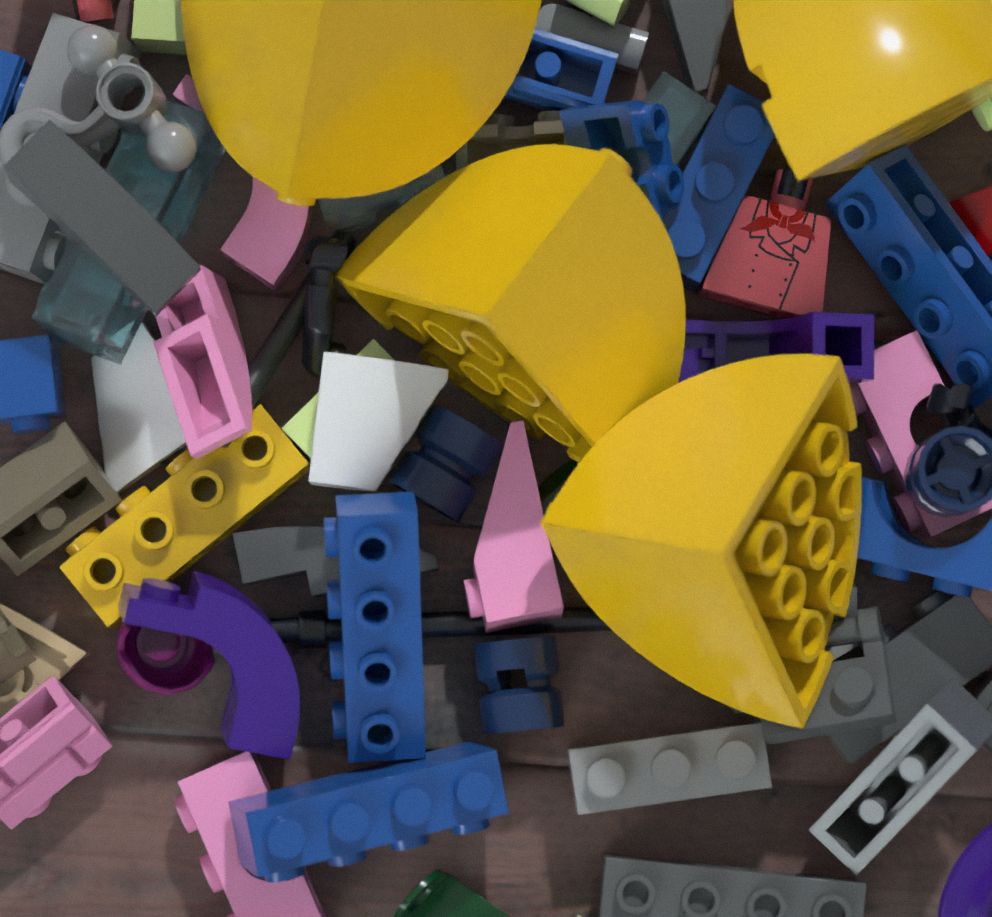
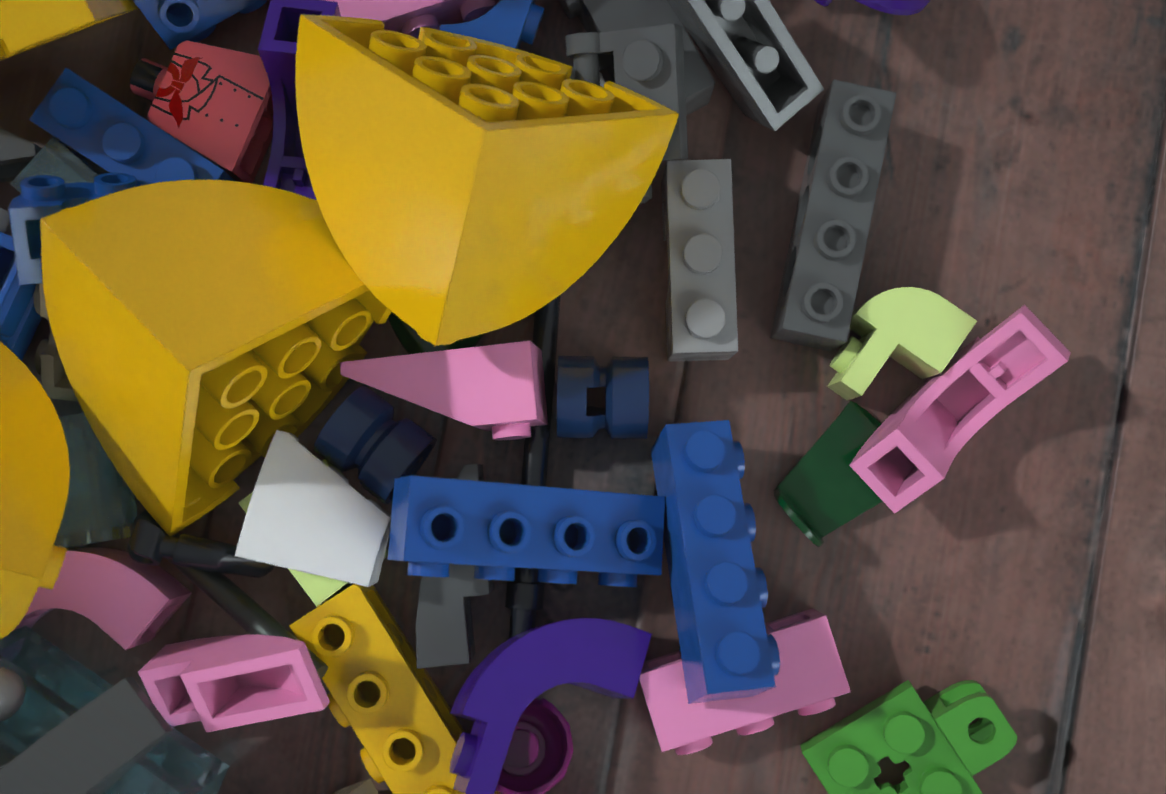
camera: 80 degrees left, 0 degrees up
(135, 413) = (287, 753): white slope -> none

